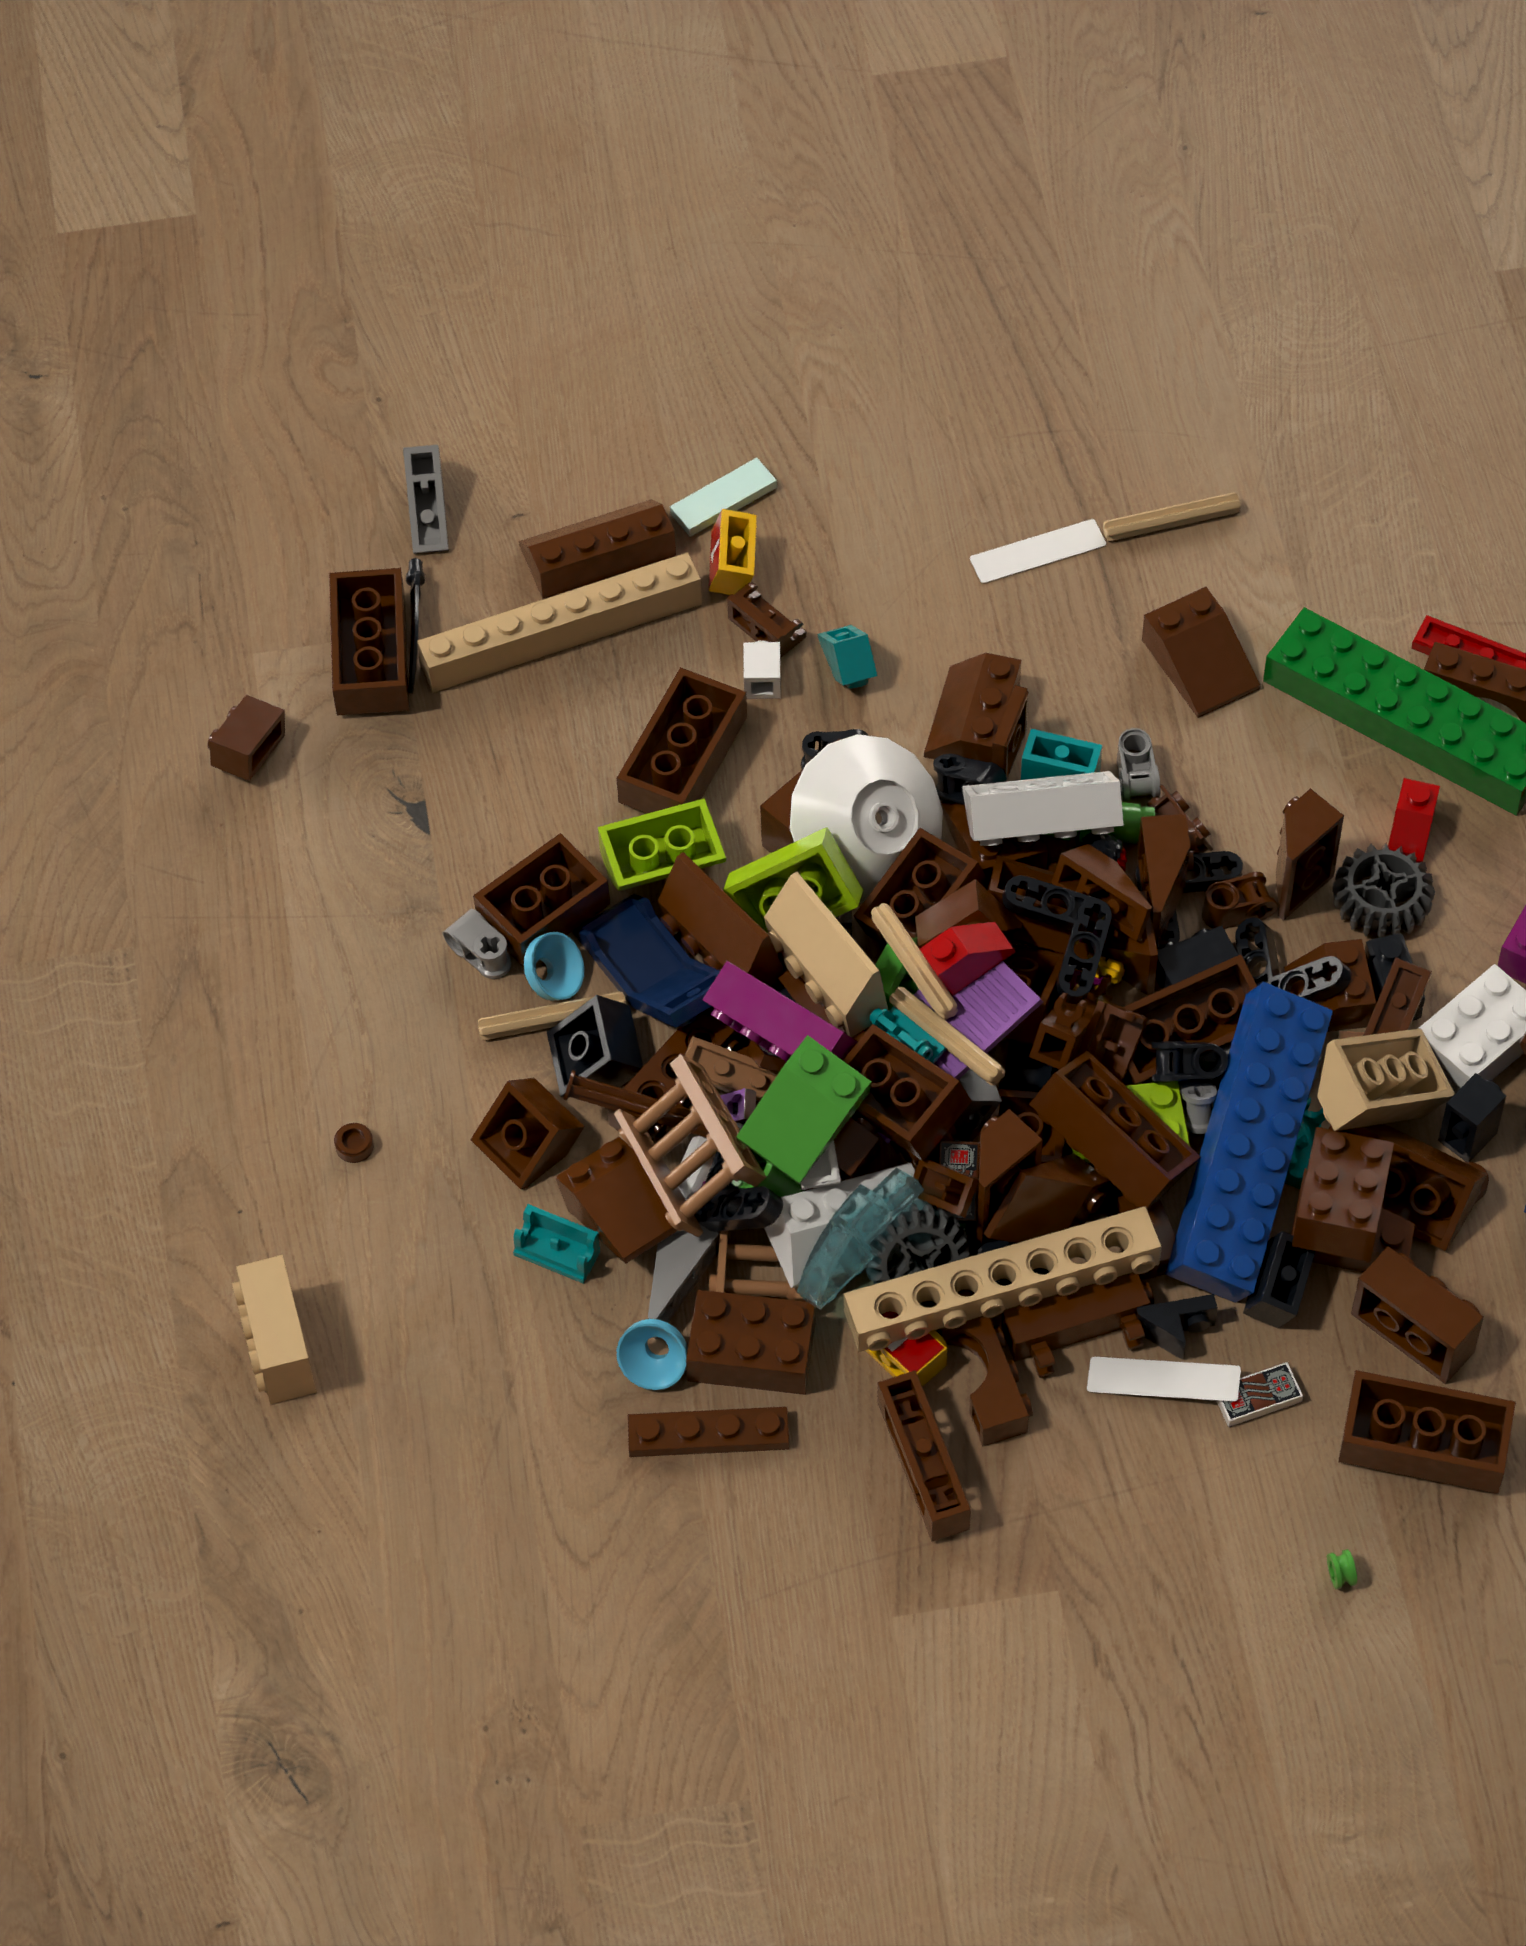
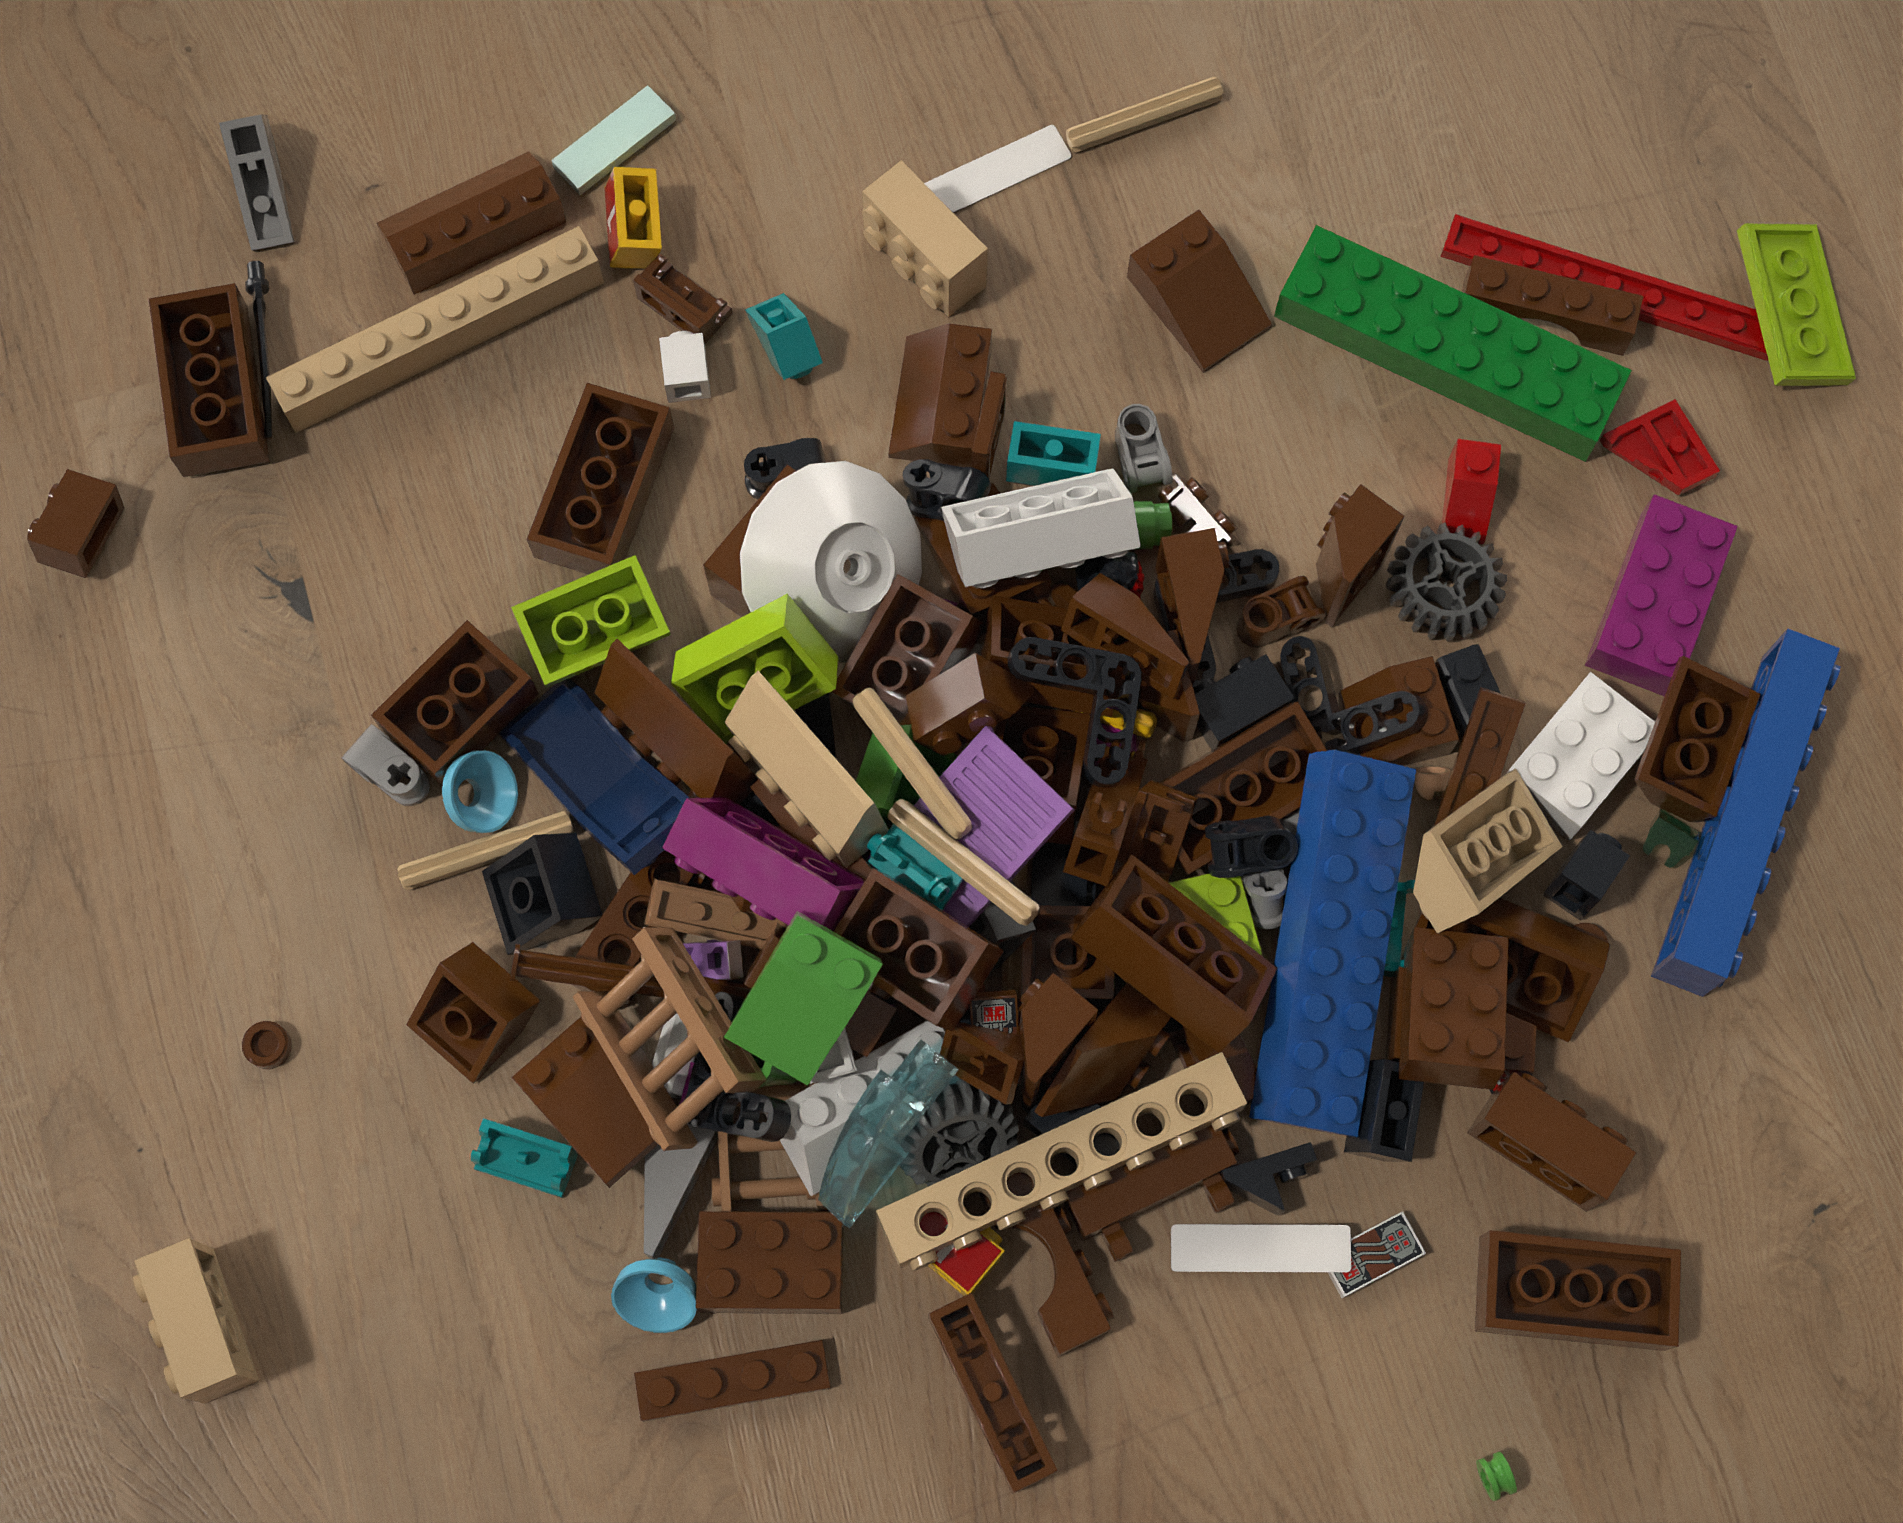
camera: 10 degrees left, 15 degrees up
(966, 953) = (976, 755): red slope -> none
(973, 589) = (924, 239): none -> tan brick

